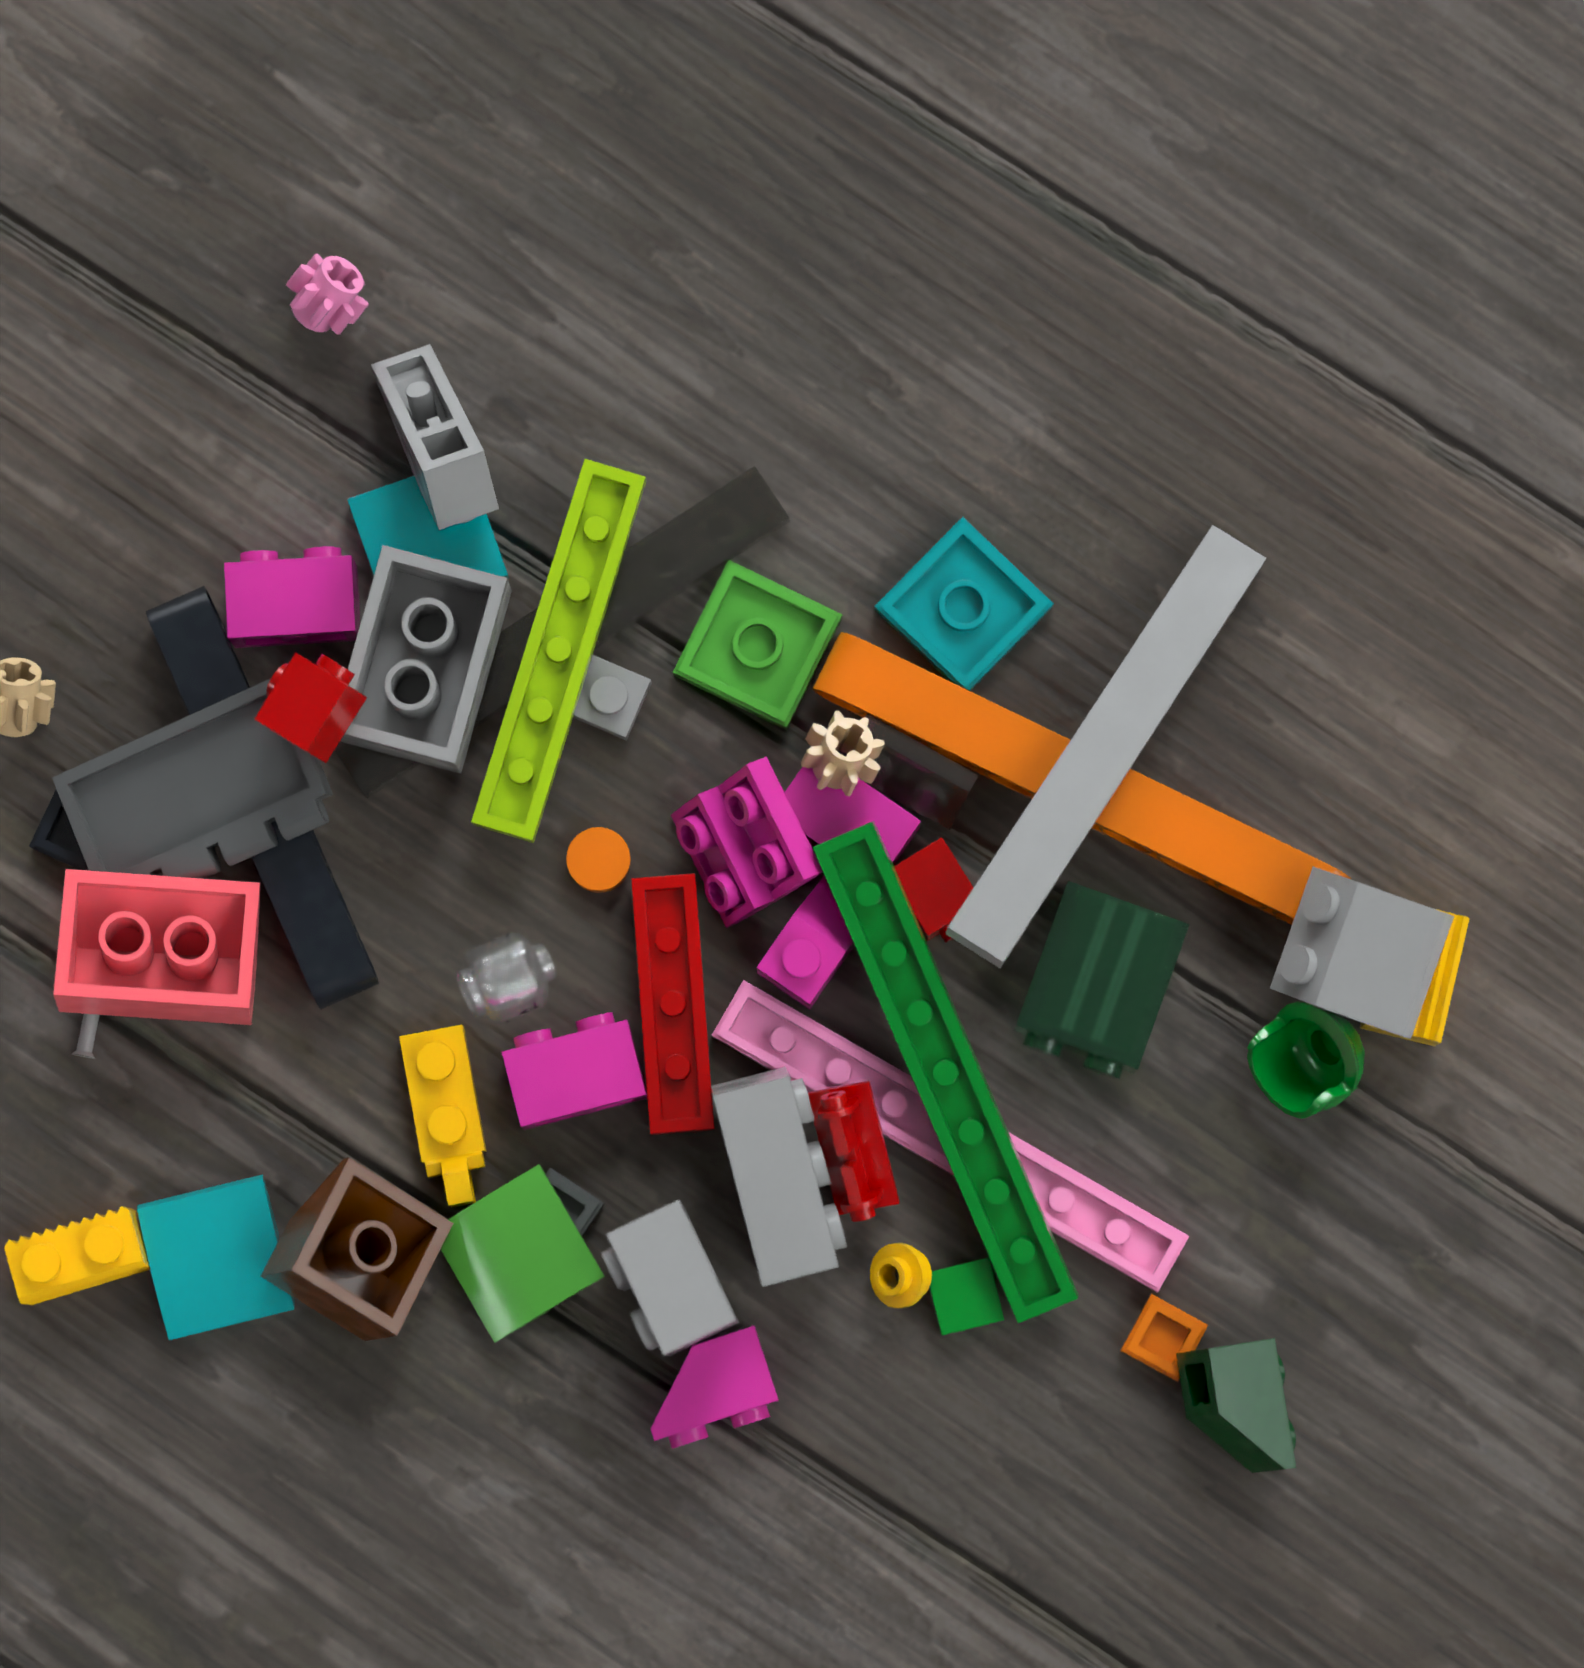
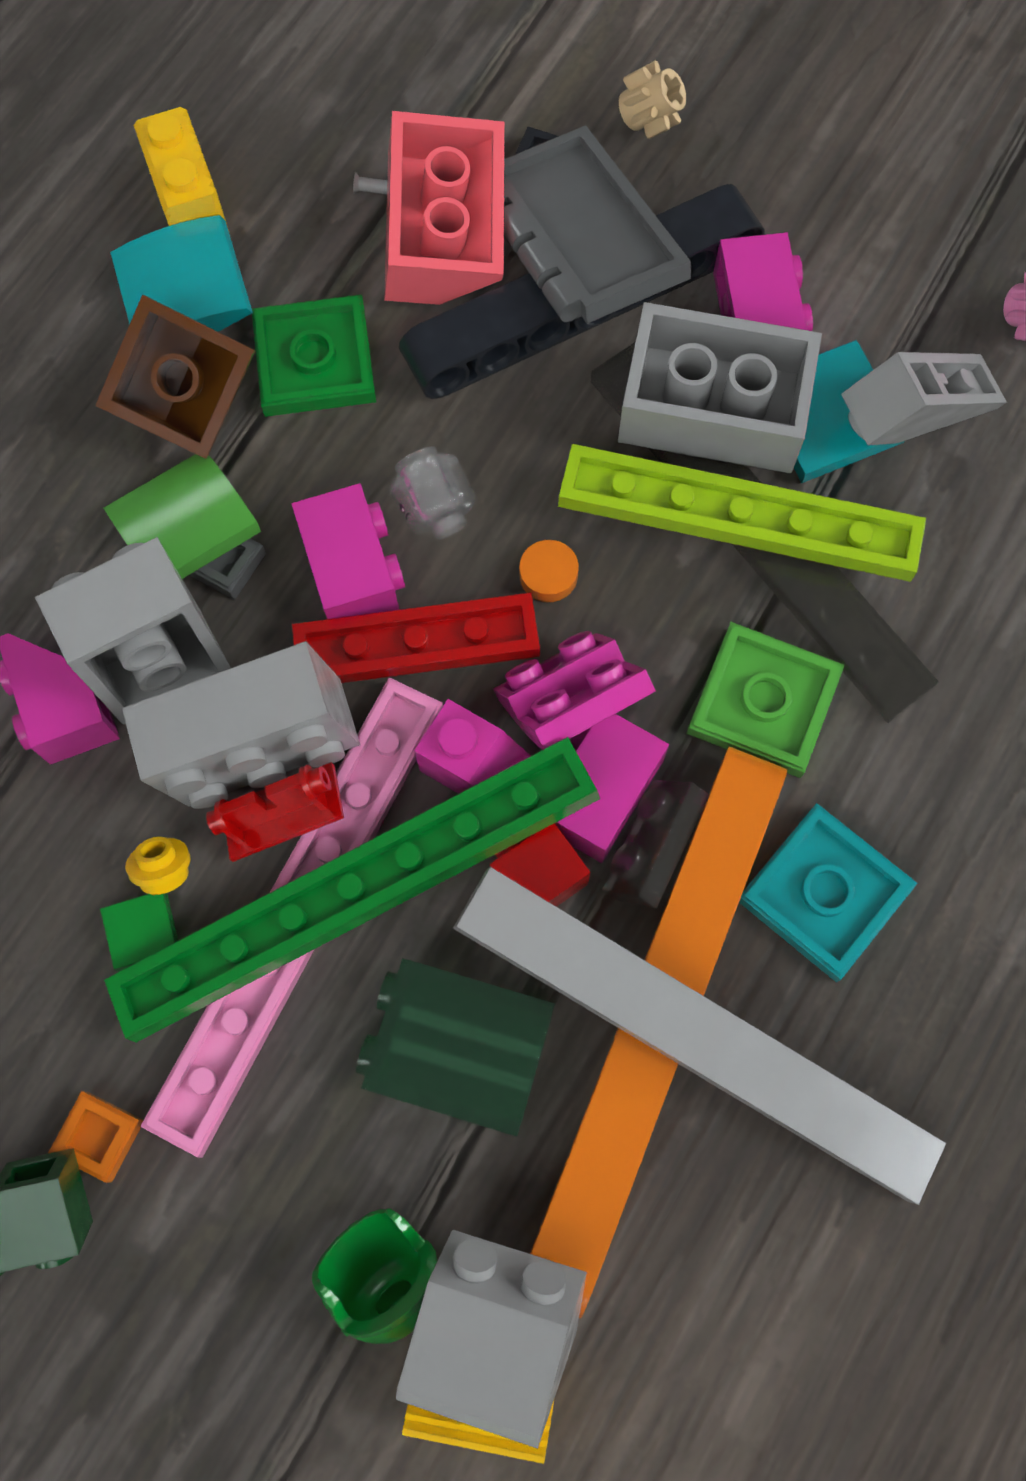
camera: 85 degrees right, 10 degrees down
(311, 704) = (663, 271): red brick -> none
(312, 1108) = (313, 355): none -> green tile
(445, 1108) = (312, 459): yellow hinge -> none
(611, 697) = (700, 571): light grey plate -> none
(850, 737) = (681, 758): tan gear -> none

